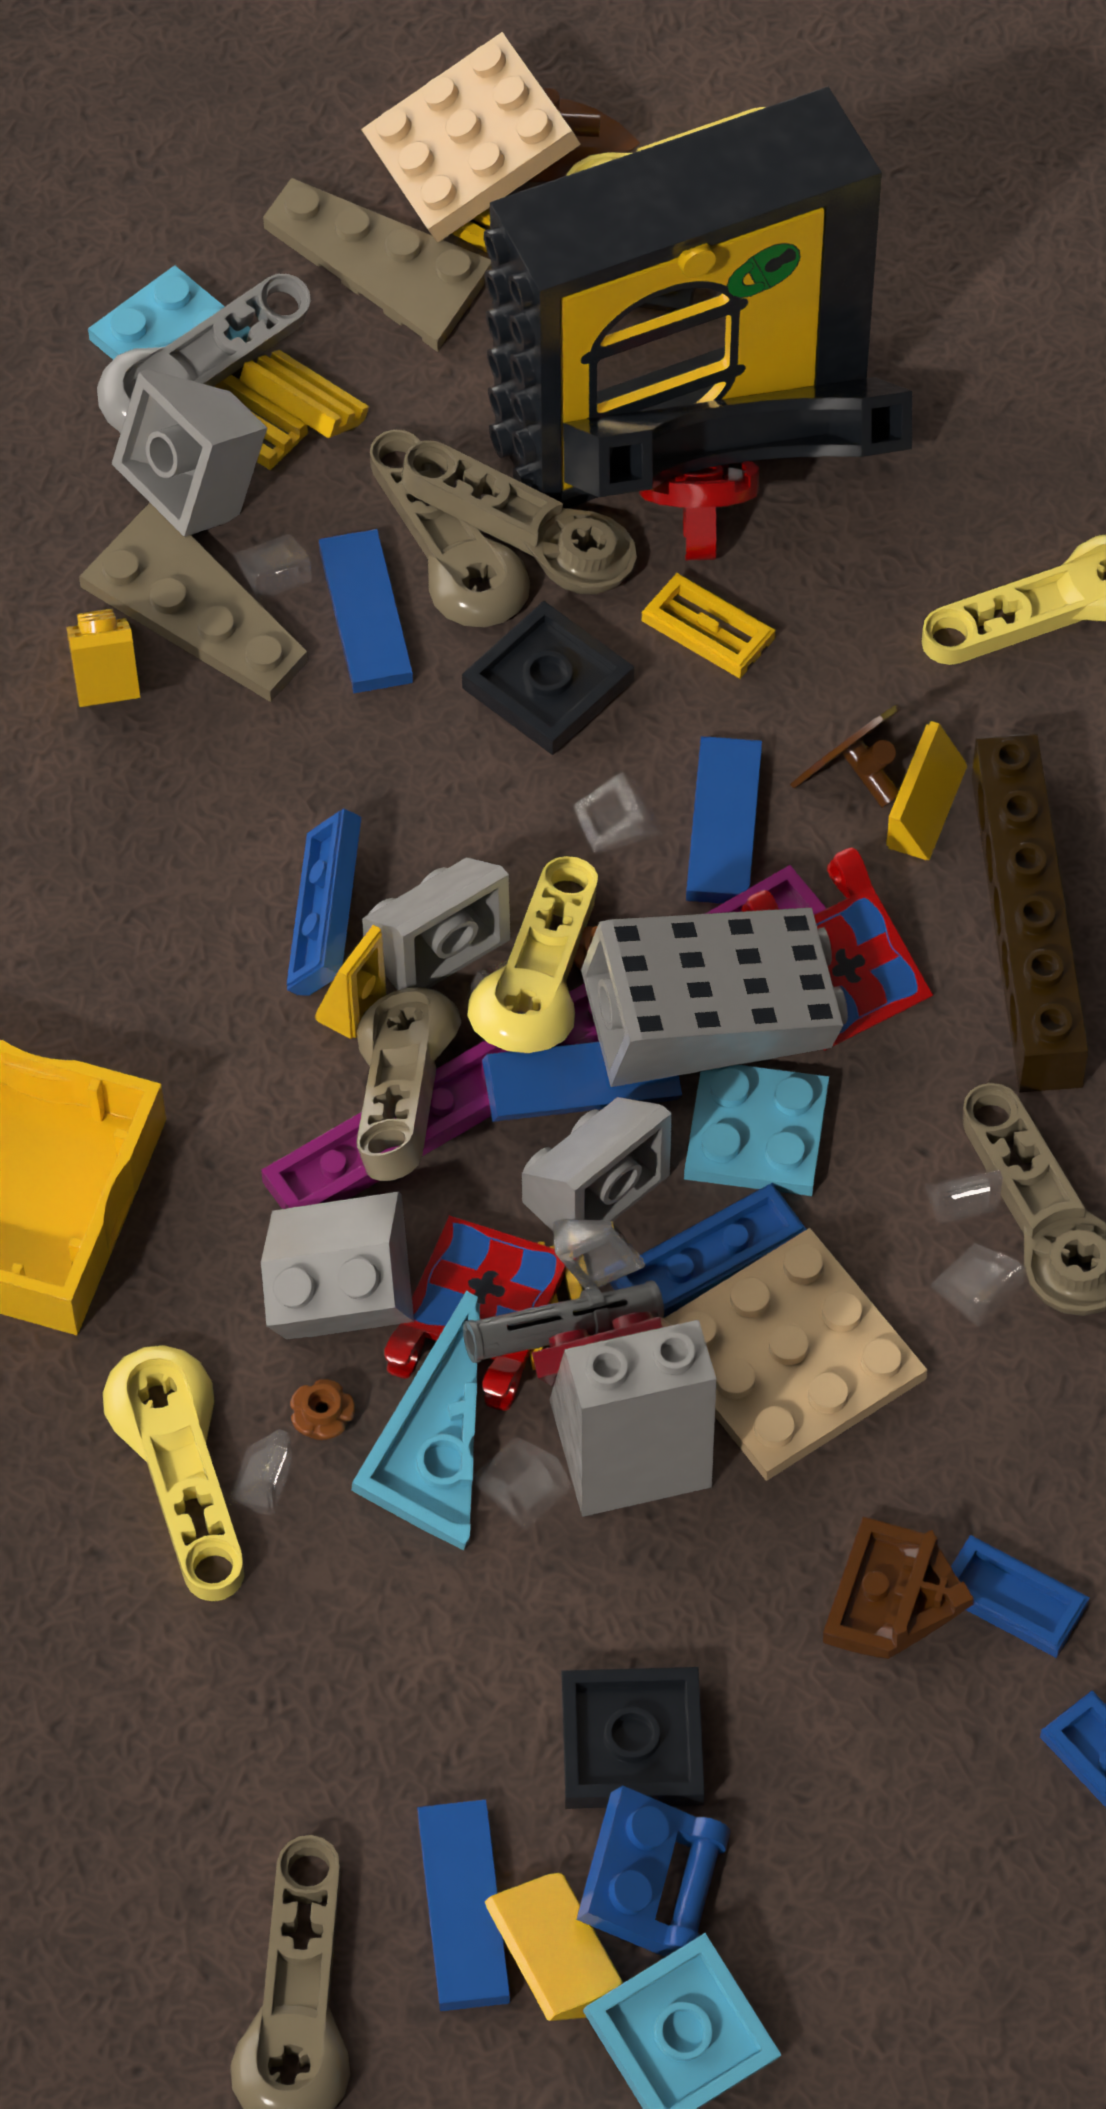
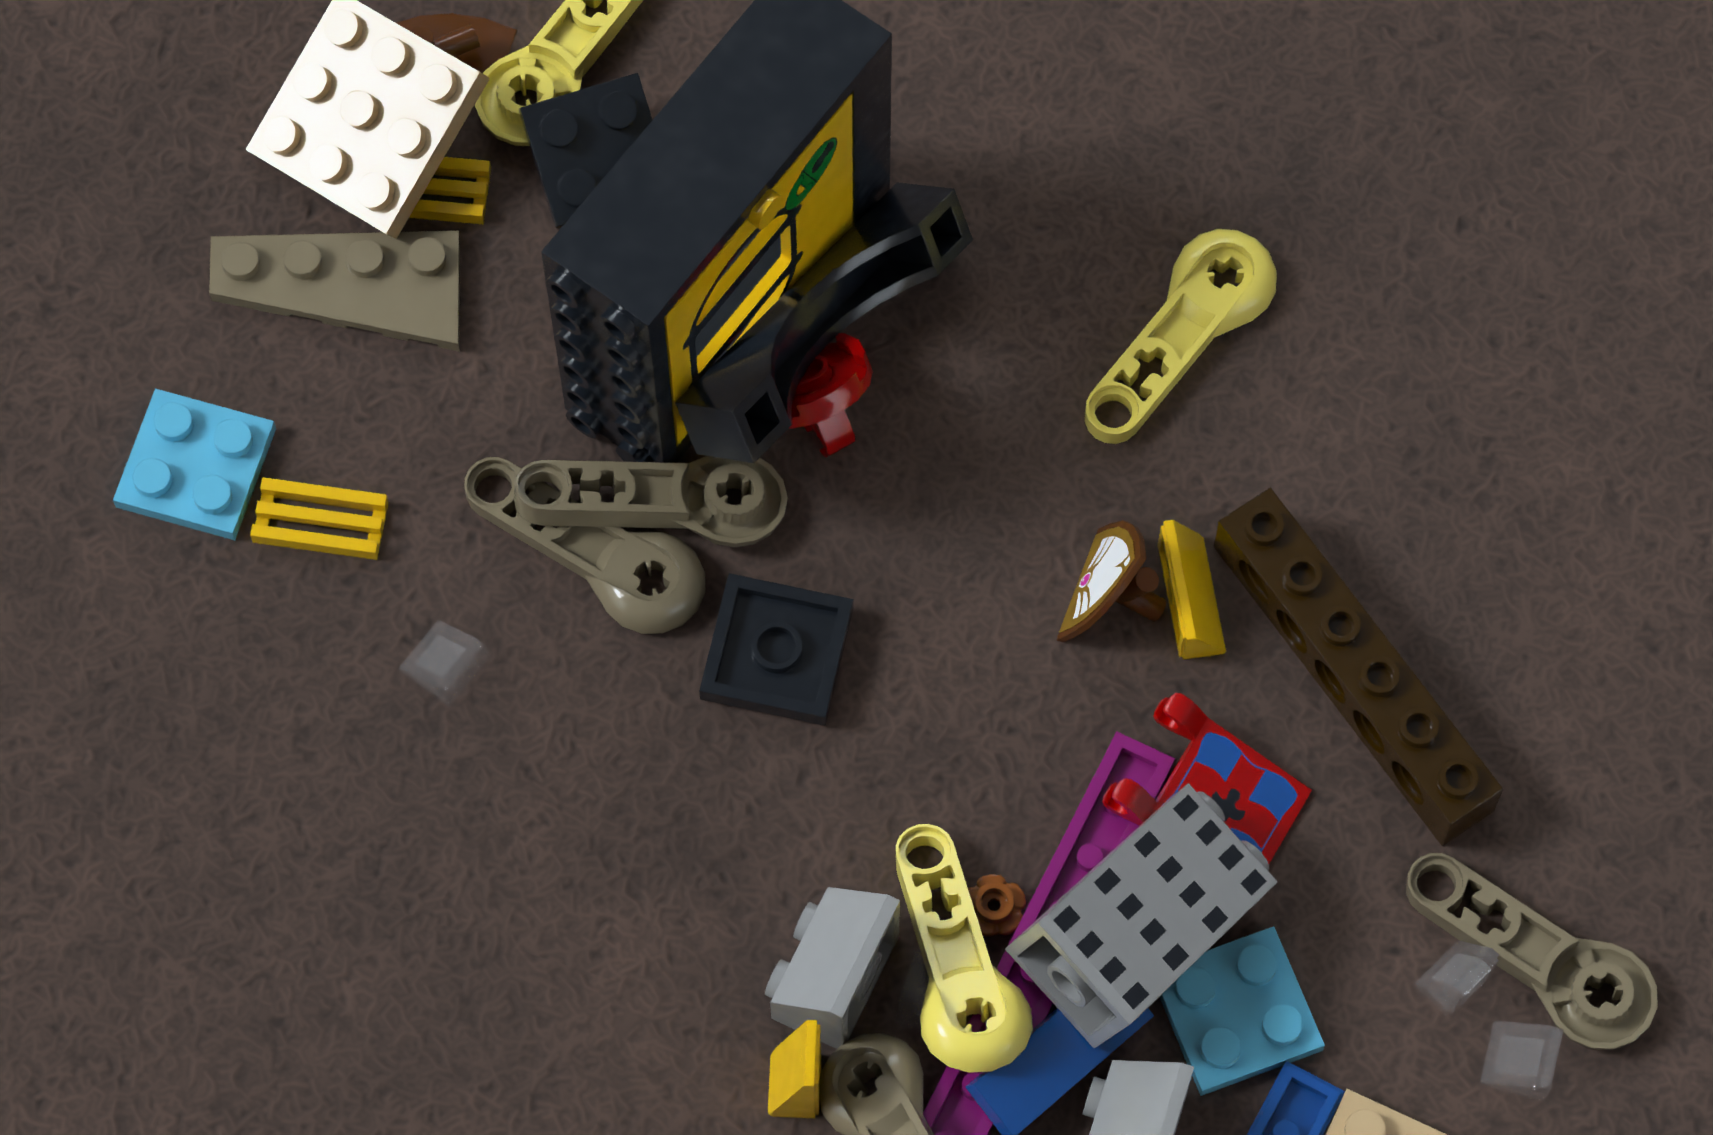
camera: 30 degrees left, 10 degrees up
(103, 658) = (351, 850): yellow slope -> none
(188, 450) = (306, 594): light grey slope -> none
(194, 603) = (382, 739): dark tan wing -> none
(205, 351) = (245, 495): light grey beam -> none
(304, 394) = (365, 465): yellow tile -> none
(323, 903) = (714, 997): blue tile -> none
(365, 611) = (561, 665): blue tile -> none
(616, 815) = (921, 758): clear slope -> none
(723, 819) = (1022, 711): blue tile -> none
(734, 663) = (884, 537): yellow tile -> none

